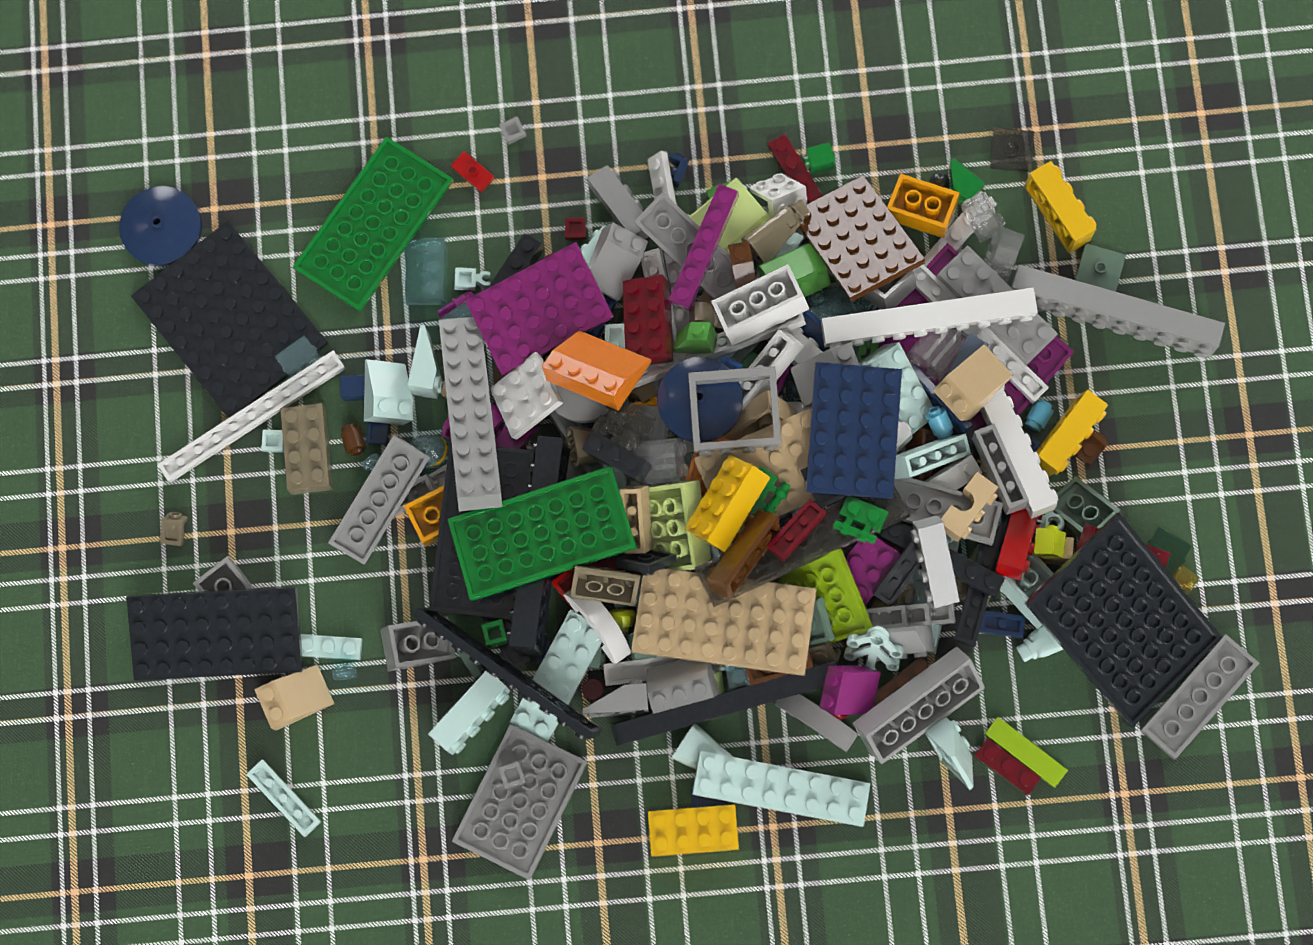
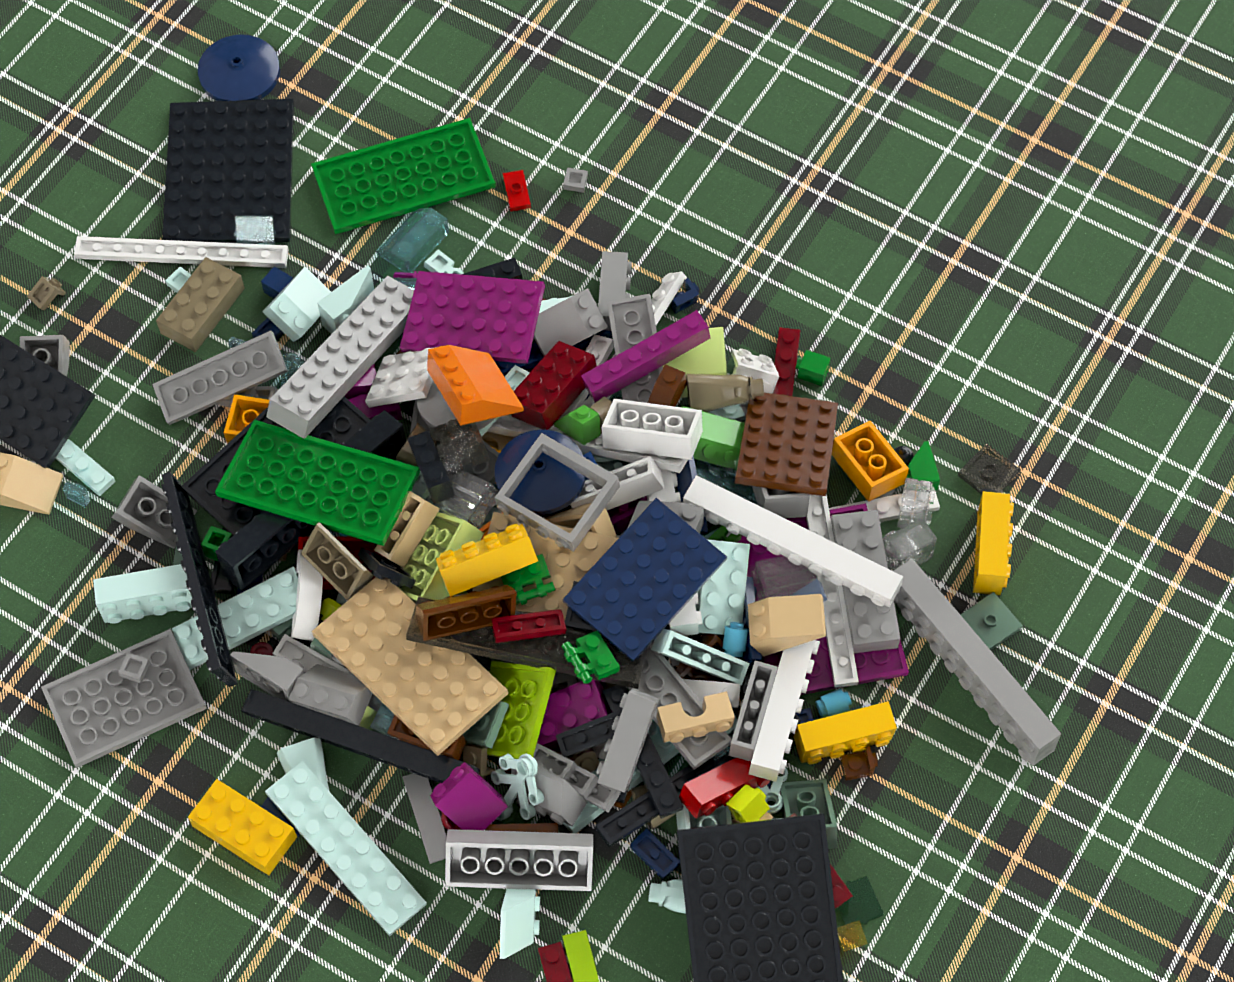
camera: 30 degrees right, 15 degrees down
(352, 439) = (242, 322): reddish brown brick -> none
(575, 228) = (561, 286): dark red plate -> none

